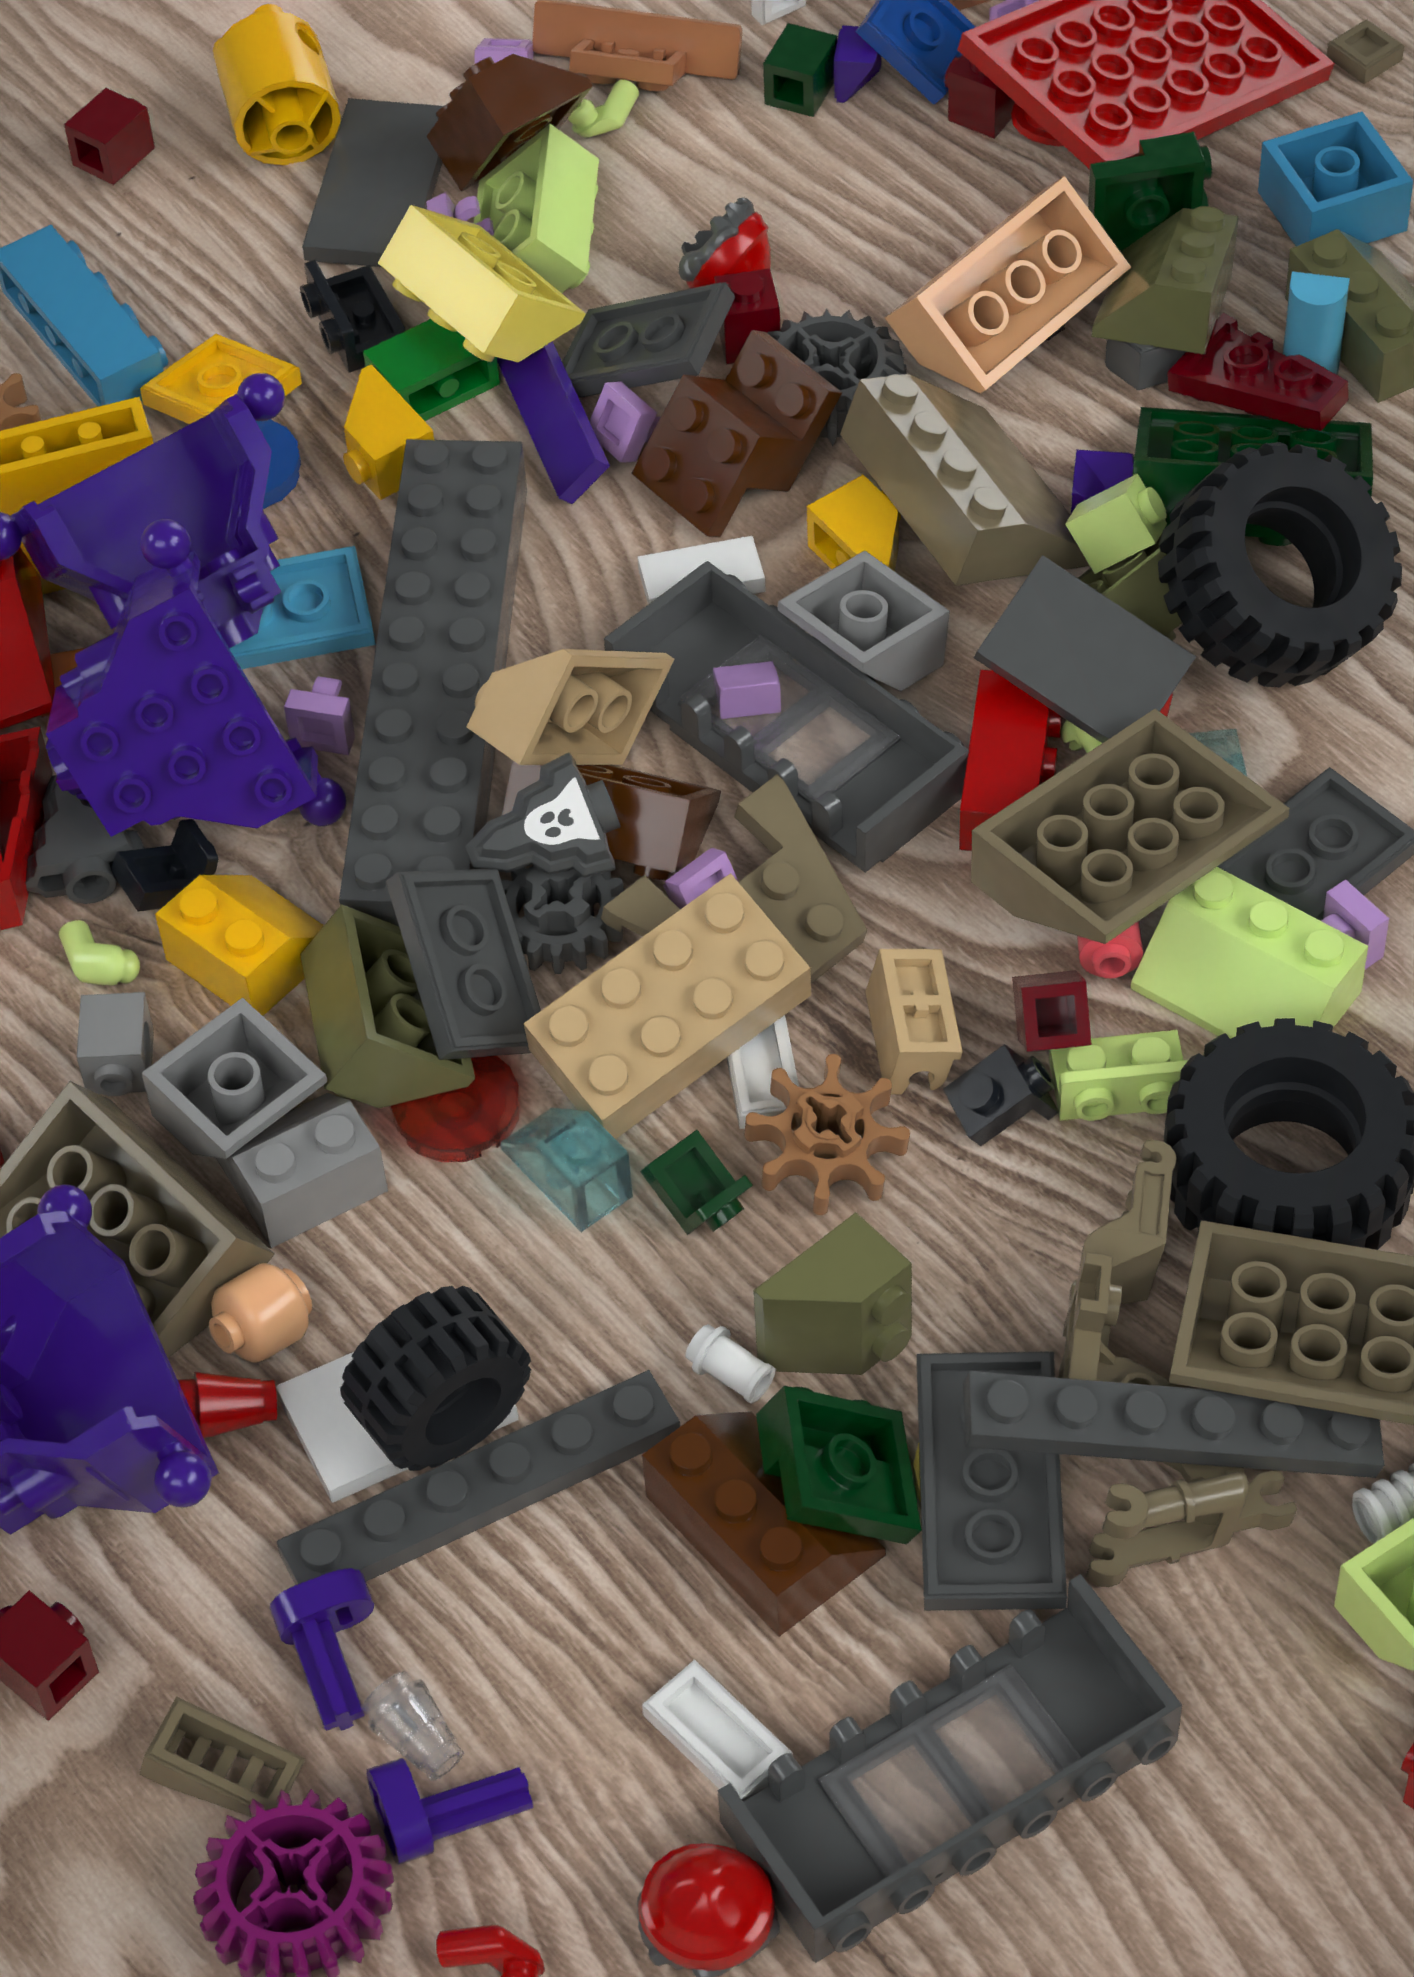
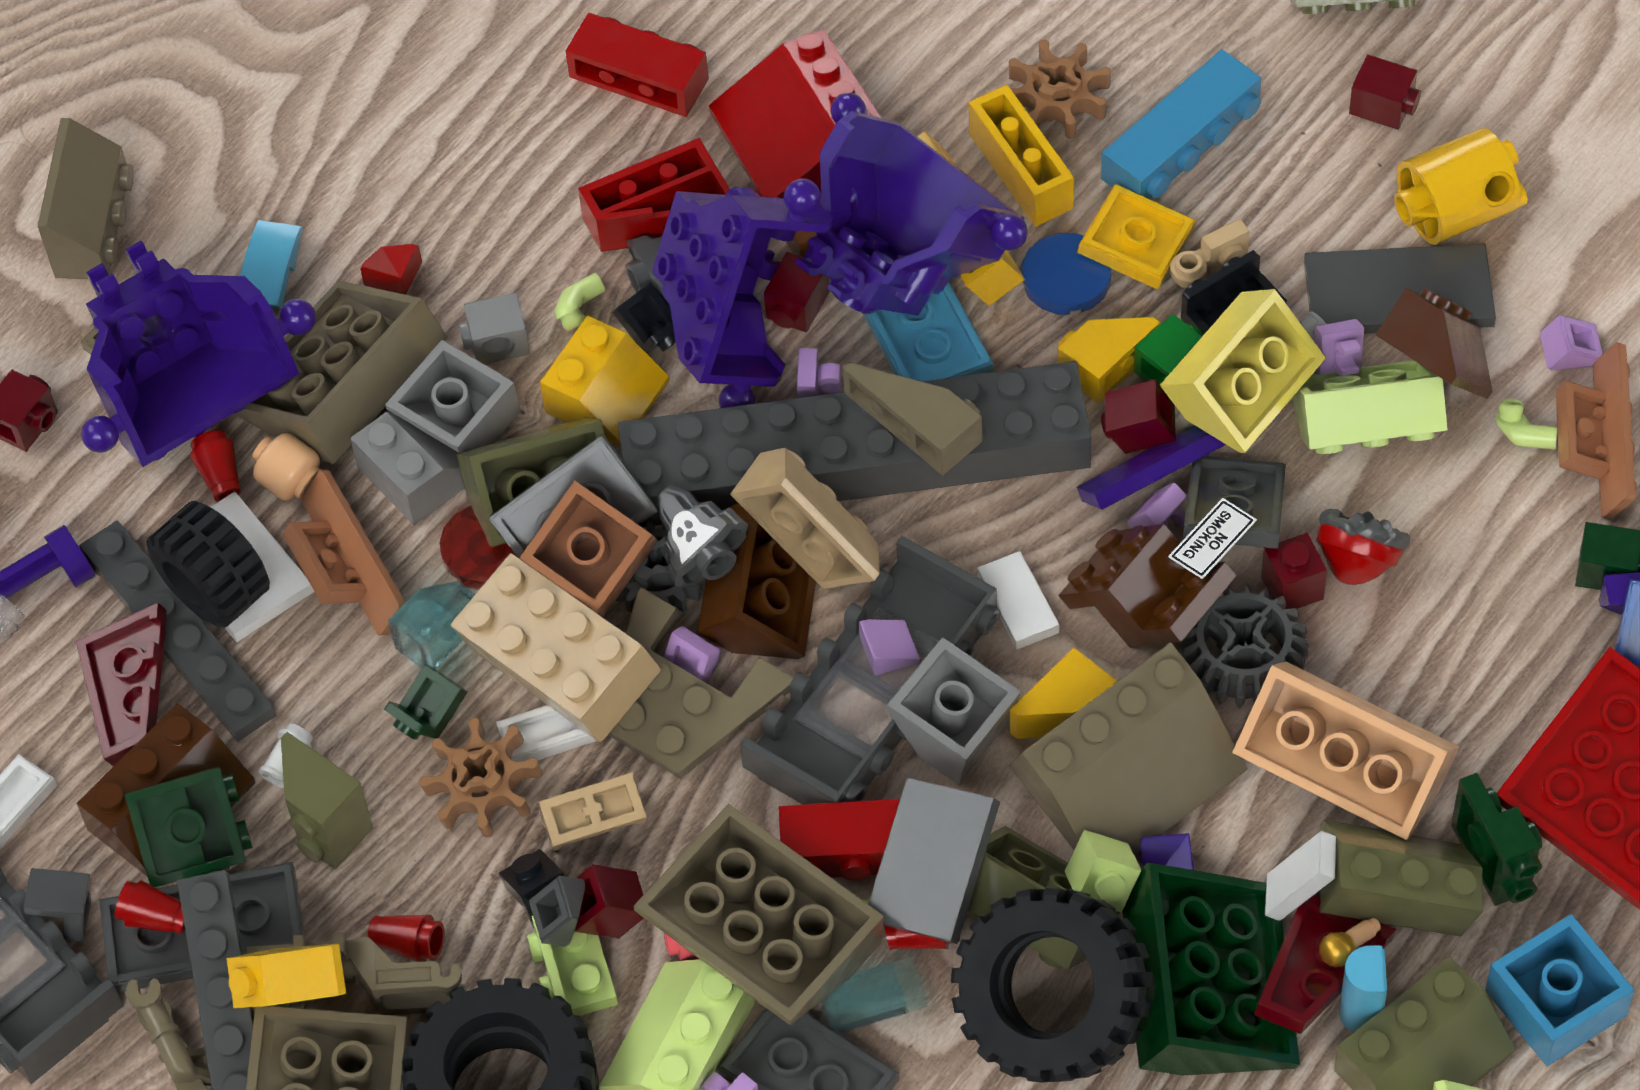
camera: 80 degrees right, 5 degrees up
(275, 316) = (1215, 251): none -> tan plate
(429, 1252) = (340, 555): none -> nougat bracket
(458, 568) = (919, 414): none -> dark tan slope
(491, 405) = (1139, 417): none -> dark red brick
(546, 926) = (588, 548): none -> nougat brick
(563, 1549) = (124, 678): none -> wing
(716, 336) = (1212, 538): none -> white sticker
(914, 1645) = (62, 896): none -> dark grey panel
(970, 1516) = (149, 908): none -> red cone
(1046, 1243) = (408, 935): none -> red cone
(1074, 1038) = (558, 909): none -> dark grey slope
(1151, 1309) = (286, 975): none -> yellow slope
(1163, 353) = (1300, 875): none -> white tile
(1257, 339) = (1338, 946): none -> pearl gold piece

